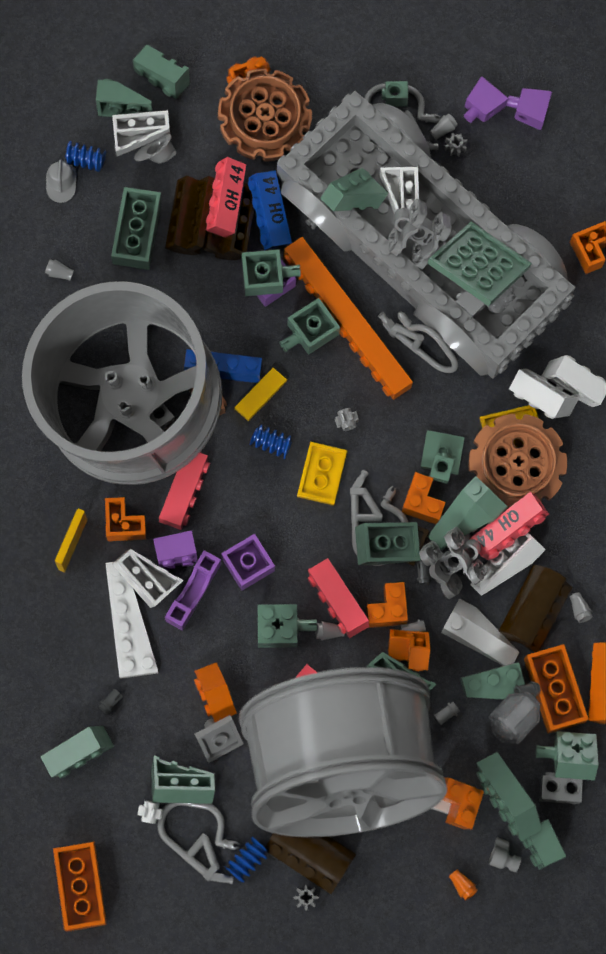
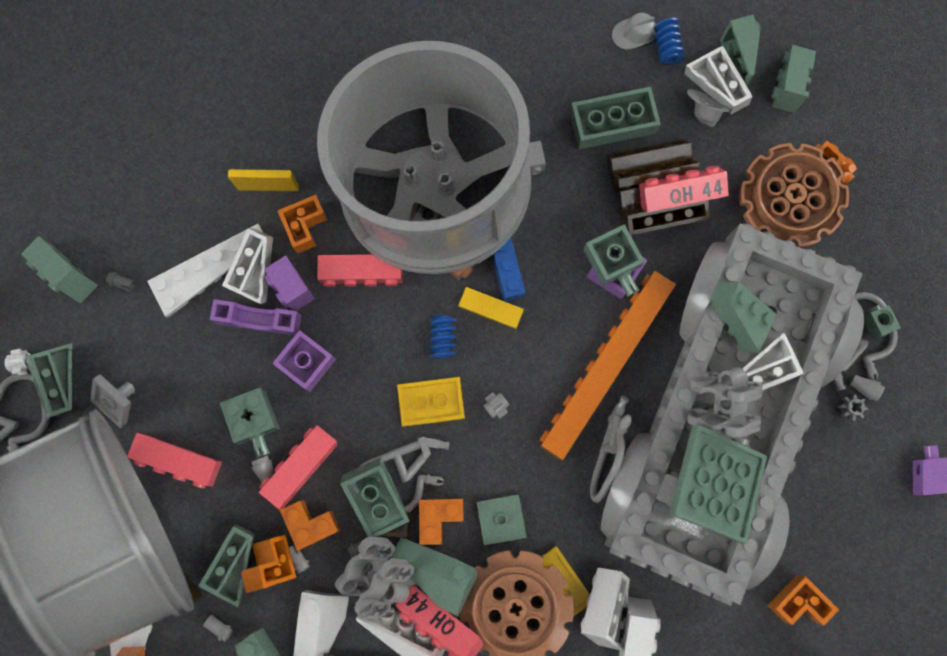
camera: 75 degrees right, 5 degrees up
(58, 270) = (540, 63): light grey cone -> none
(214, 690) = (157, 377): orange brick -> none
(269, 210) = (690, 239): blue brick -> none
(310, 337) = (573, 323): sand green brick -> none
(441, 476) = (470, 529): sand green brick -> none
(484, 101) = (917, 420): medium lavender torso -> none

